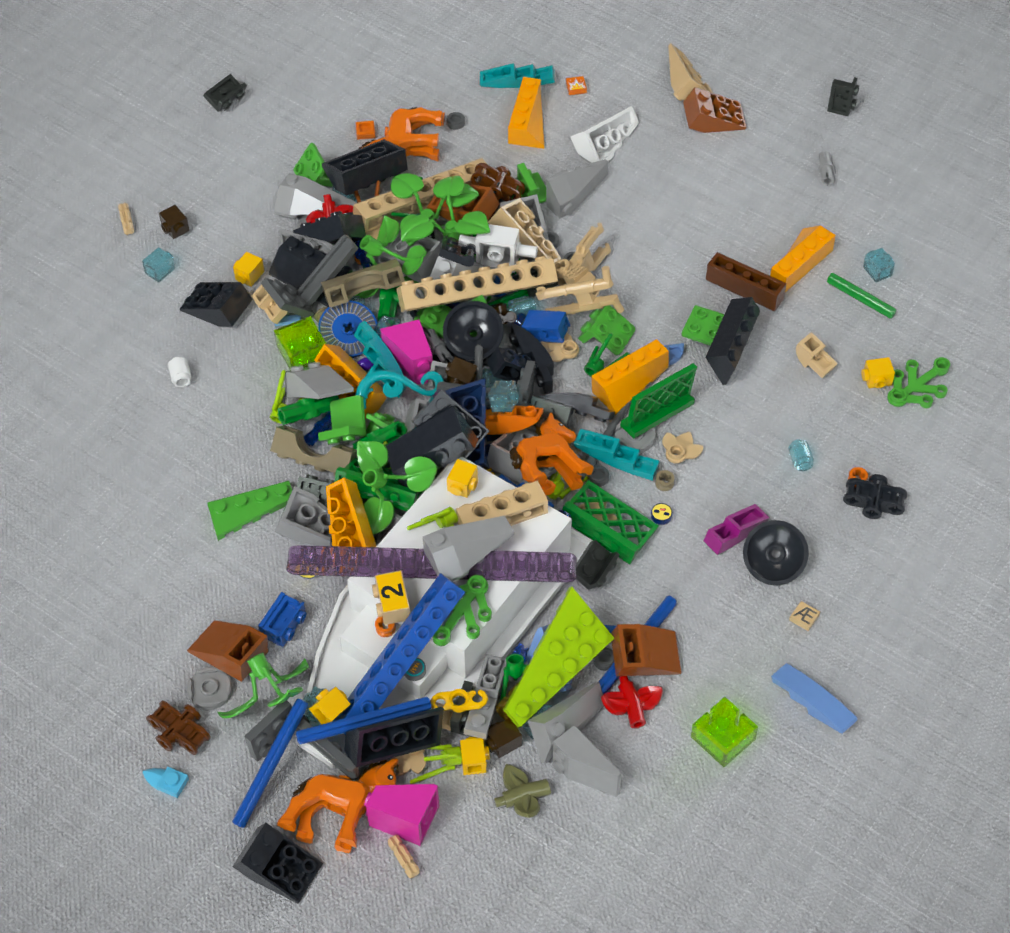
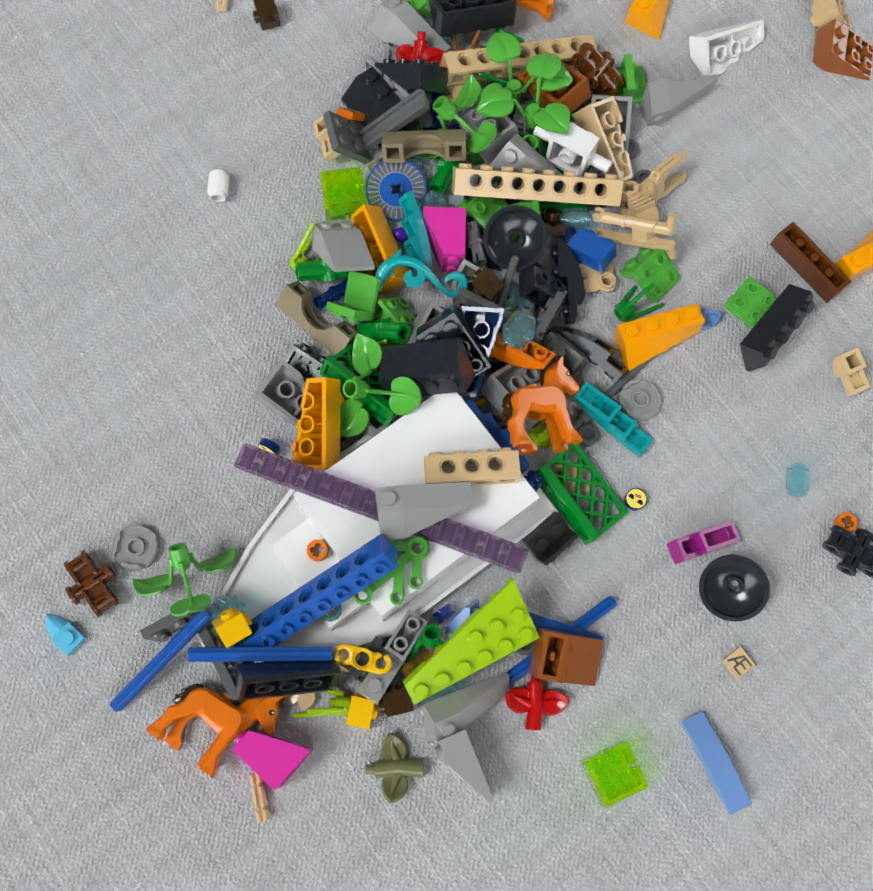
camera: 10 degrees right, 20 degrees up
(158, 264) = (236, 56): clear light blue brick -> none
(217, 302) = (279, 118): black slope -> none
(229, 647) = (166, 512): dark orange slope -> none
(237, 510) = (227, 359): bright green wing -> none
(248, 269) = (321, 89): yellow brick -> none
(277, 863) = (136, 765): black slope -> none
(283, 619) = (228, 497): blue hinge -> none
(286, 280) = (350, 114): none -> orange tile
(288, 319) = (343, 160): medium blue piece -> none
(392, 597) = (327, 534): brick -> none
(444, 519) = (410, 457): lime plant -> none
(451, 249) = (521, 141): black plate -> none
(462, 478) = (443, 418): yellow brick -> none
(660, 402) = (675, 380): green fence -> none
(668, 476) = (655, 458): dark tan bush -> none
(682, 446) = (681, 428): tan plate -> none

